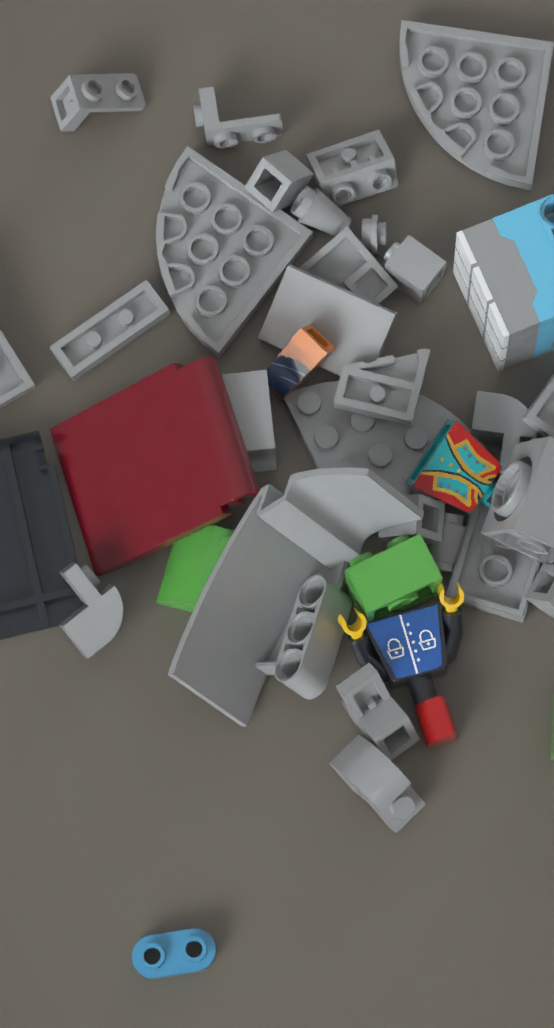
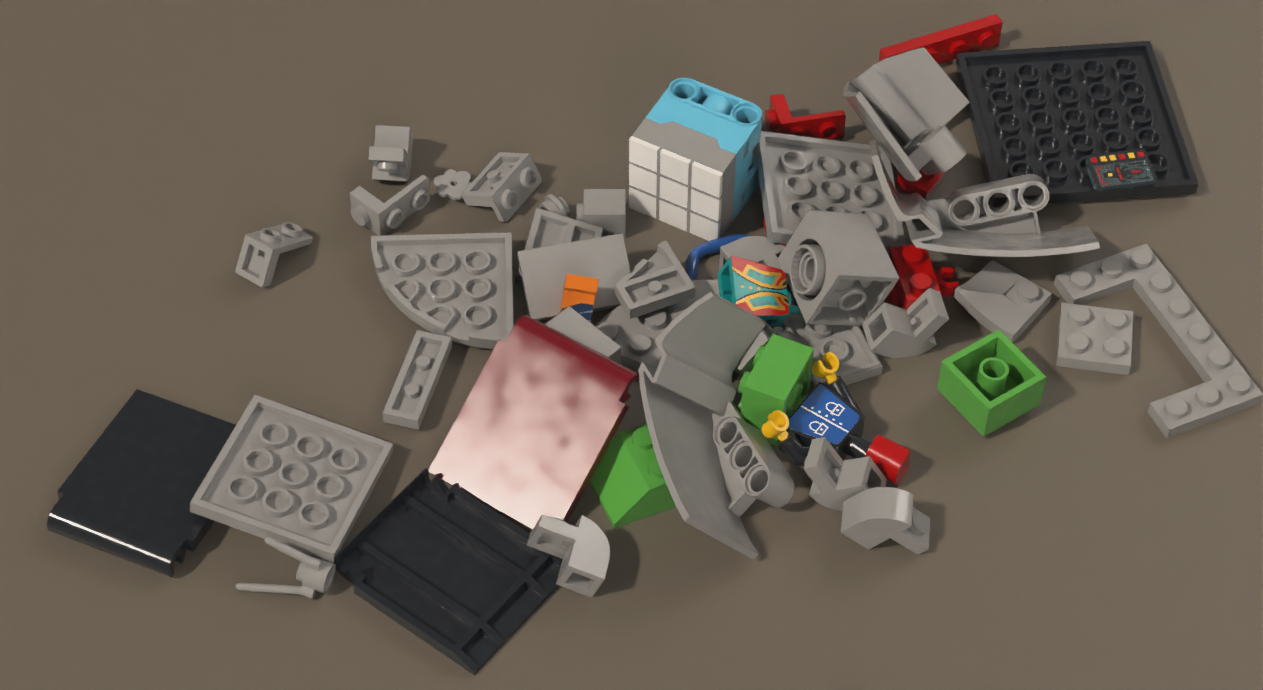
camera: 45 degrees left, 25 degrees down
(278, 65) = (391, 153): none -> light grey brick
(278, 180) = (459, 214): light grey brick -> none
(309, 127) = (452, 183): none -> light grey plant
(319, 212) = (504, 218): light grey cone -> none
(479, 95) = (549, 97): light grey plate -> none
(487, 375) = (704, 249): none -> blue animal

